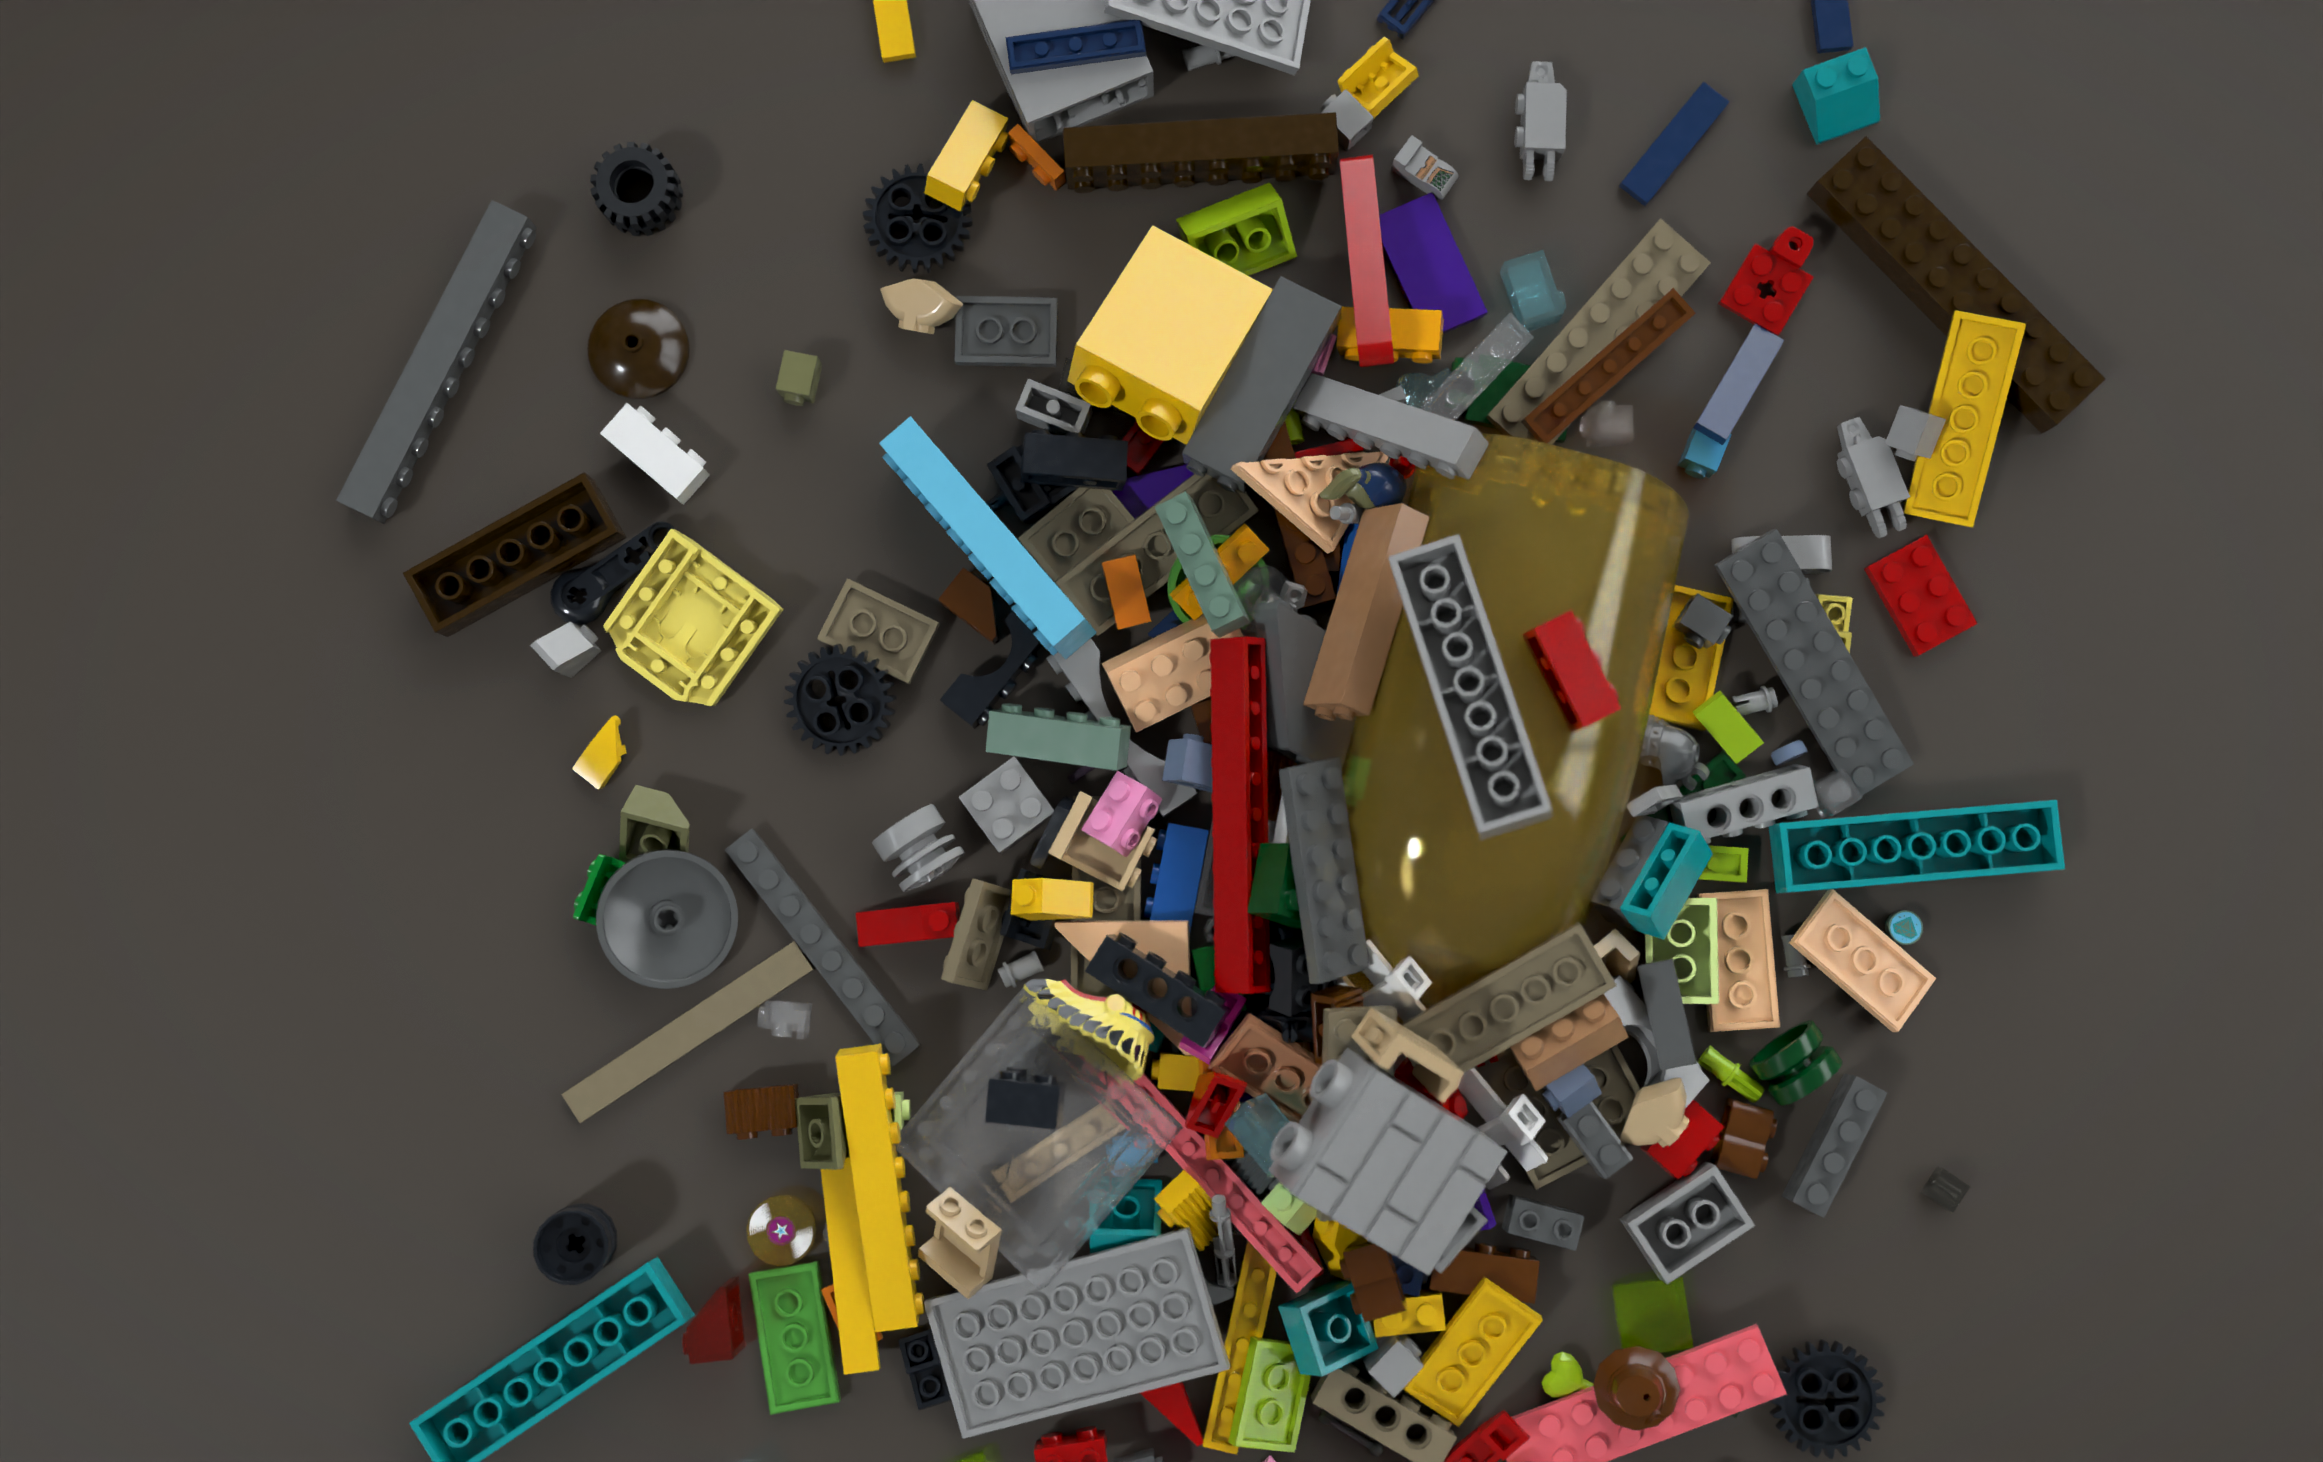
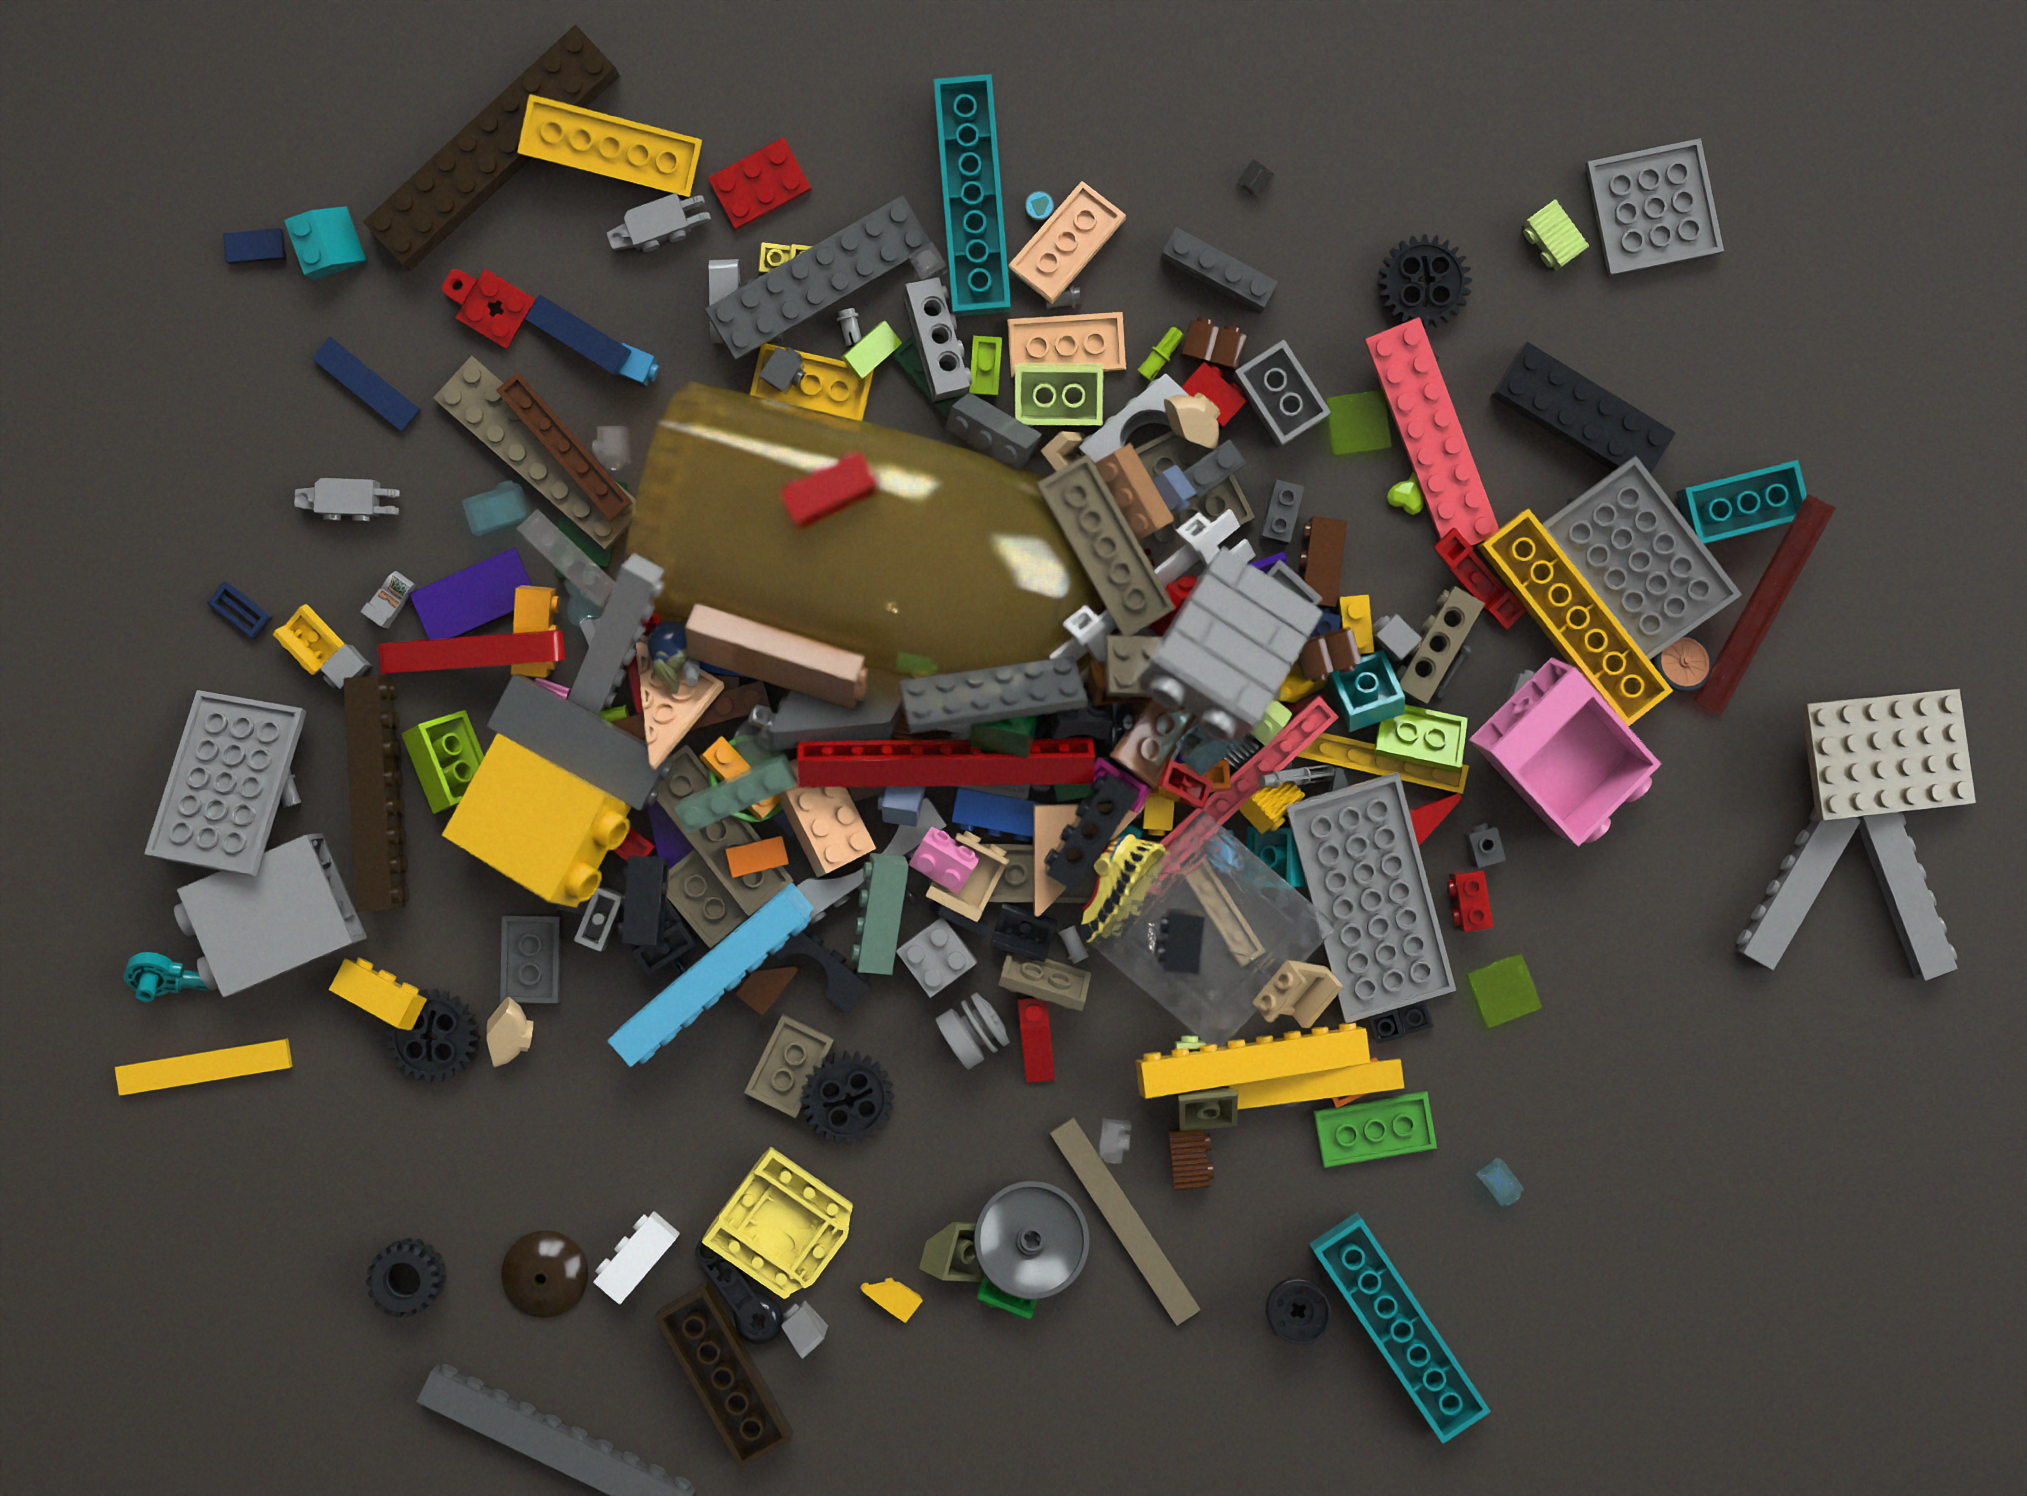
camera: 90 degrees left, 5 degrees up
(717, 1328) = (1366, 1192): clear red slope -> none
(781, 1230) = (1288, 1141): clear yellow tile -> none
(798, 377) = (571, 1136): olive brick -> none
(822, 946) = (1054, 1110): dark grey plate -> none
(1026, 148) = (387, 926): orange plate -> none
(1051, 899) = (1015, 919): yellow slope -> none
(1075, 46) = (285, 901): dark blue tile -> none
(1386, 1038) = (1130, 646): tan panel -> none
(1470, 688) = (843, 576): light grey brick -> none
(1472, 1351) = (1386, 572): yellow tile -> none
(1626, 1378) = (1406, 448): reddish brown hat -> none
(1654, 800) = (934, 416): light grey tile -> none
(1666, 880) = (1001, 408): teal brick -> none
(1666, 1014) = (1111, 409): dark grey tile -> none
(1672, 753) = (893, 399): dark grey helmet -> none
(1788, 752) = (893, 299): sand blue tile -> none
(1796, 1063) = (1151, 301): dark green wheel -> none
(1914, 433) = (622, 188): light grey brick -> none

